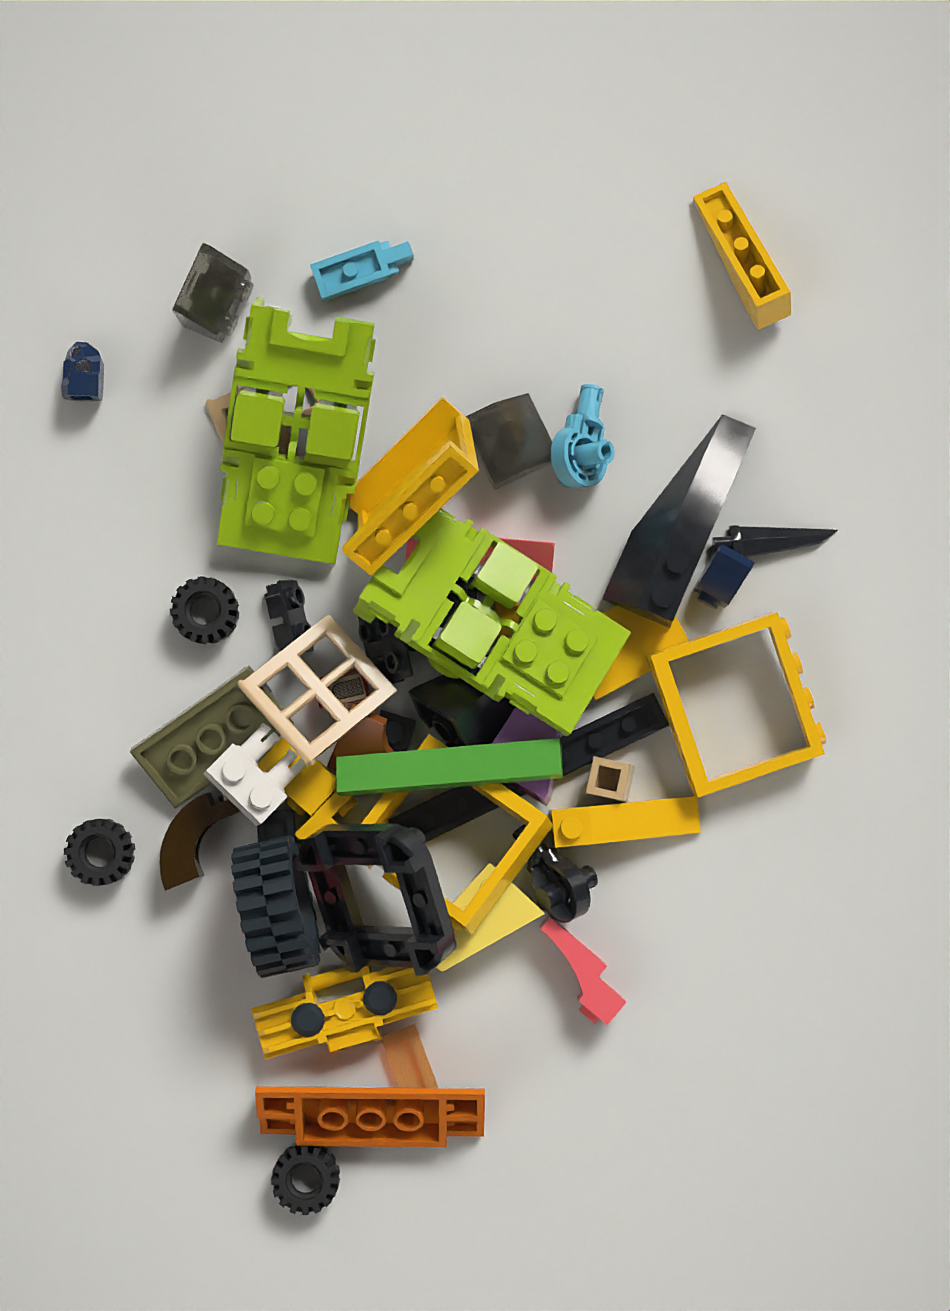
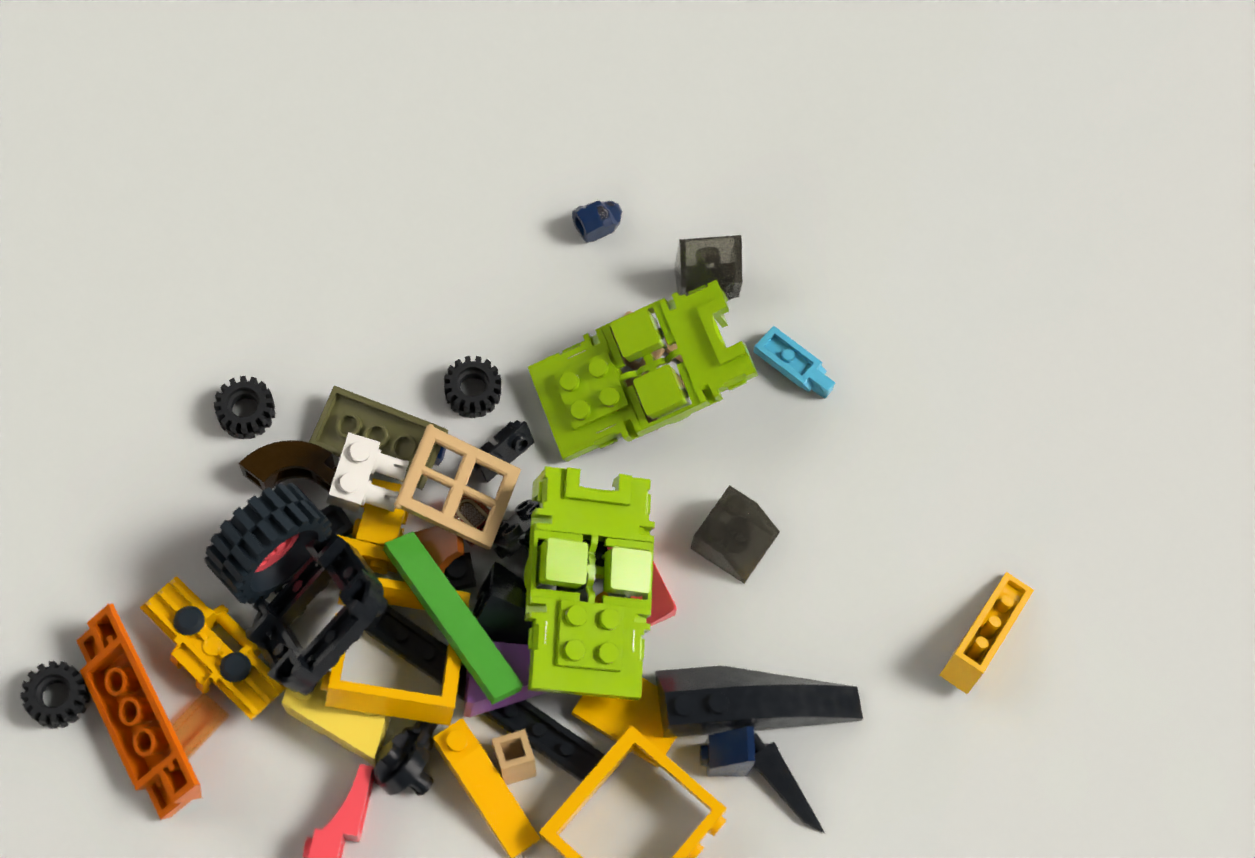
camera: 50 degrees right, 20 degrees down
(410, 484) = (651, 461): yellow panel -> none
(582, 443) = (765, 587): medium azure pin -> none

